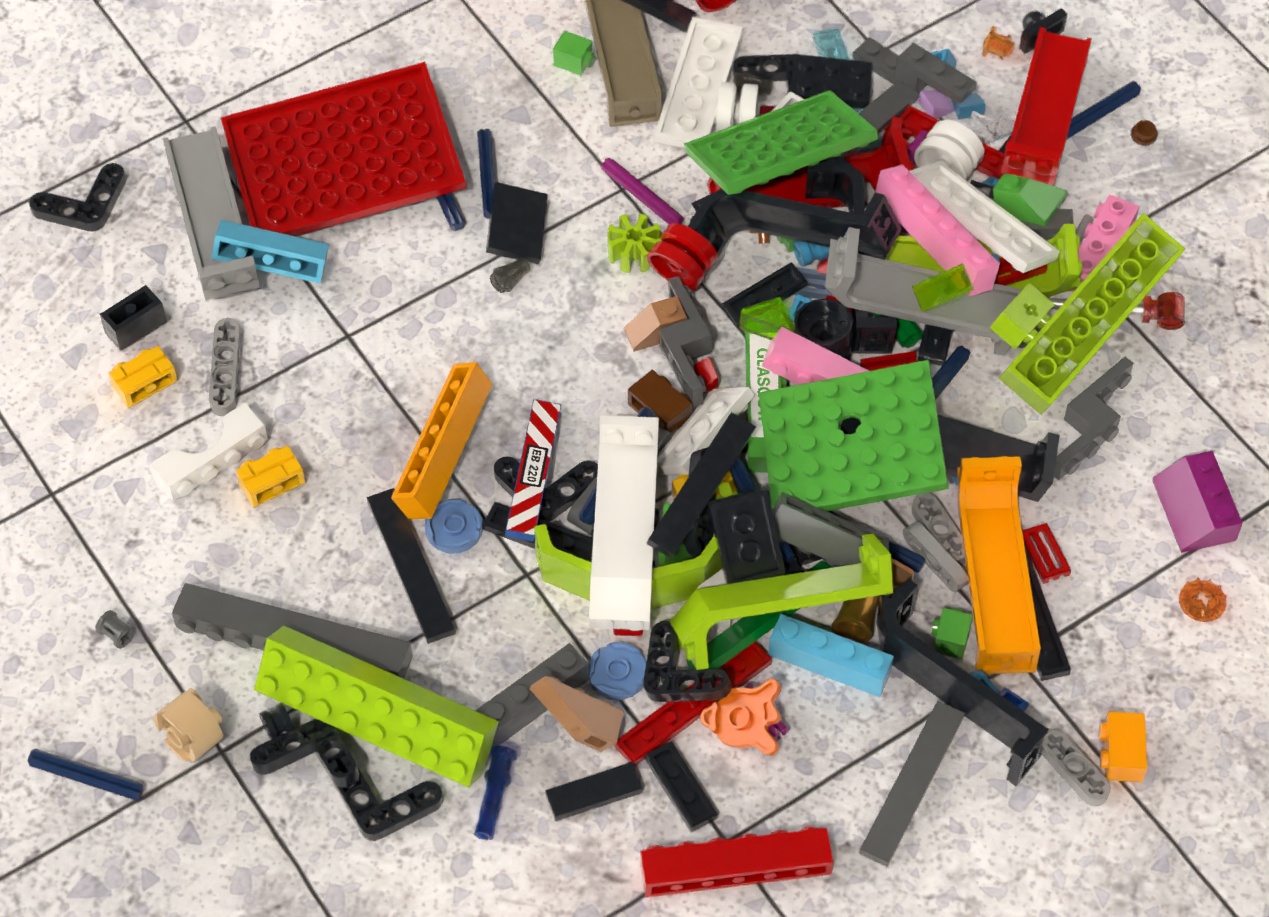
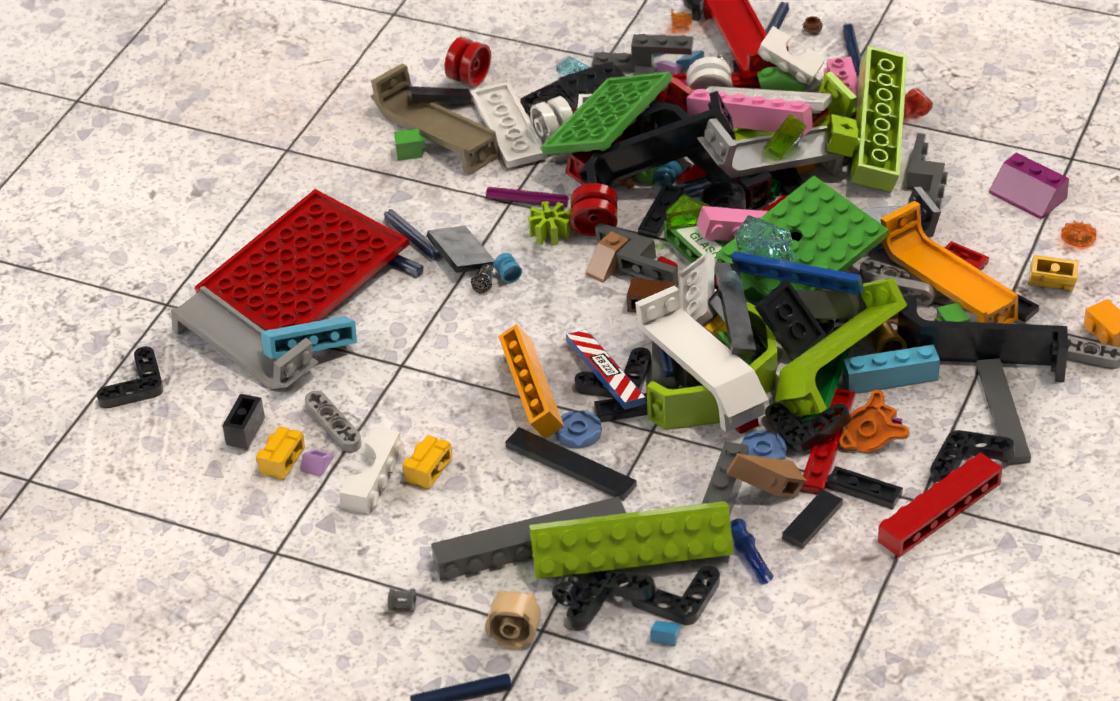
camera: 30 degrees left, 15 degrees down
(172, 406) = (316, 462): none -> lavender slope
(333, 834) = (665, 632): none -> dark azure slope
(544, 275) = (507, 267): none -> dark azure wheel
(793, 422) = (757, 238): none -> clear light blue brick
(806, 480) = (798, 273): none -> blue tile
(826, 805) = (996, 448): none -> black beam
(1057, 198) = (802, 67): none -> white arch
(1117, 638) = (1053, 272): none -> yellow brick
(1166, 186) = (852, 46): none -> dark blue axle

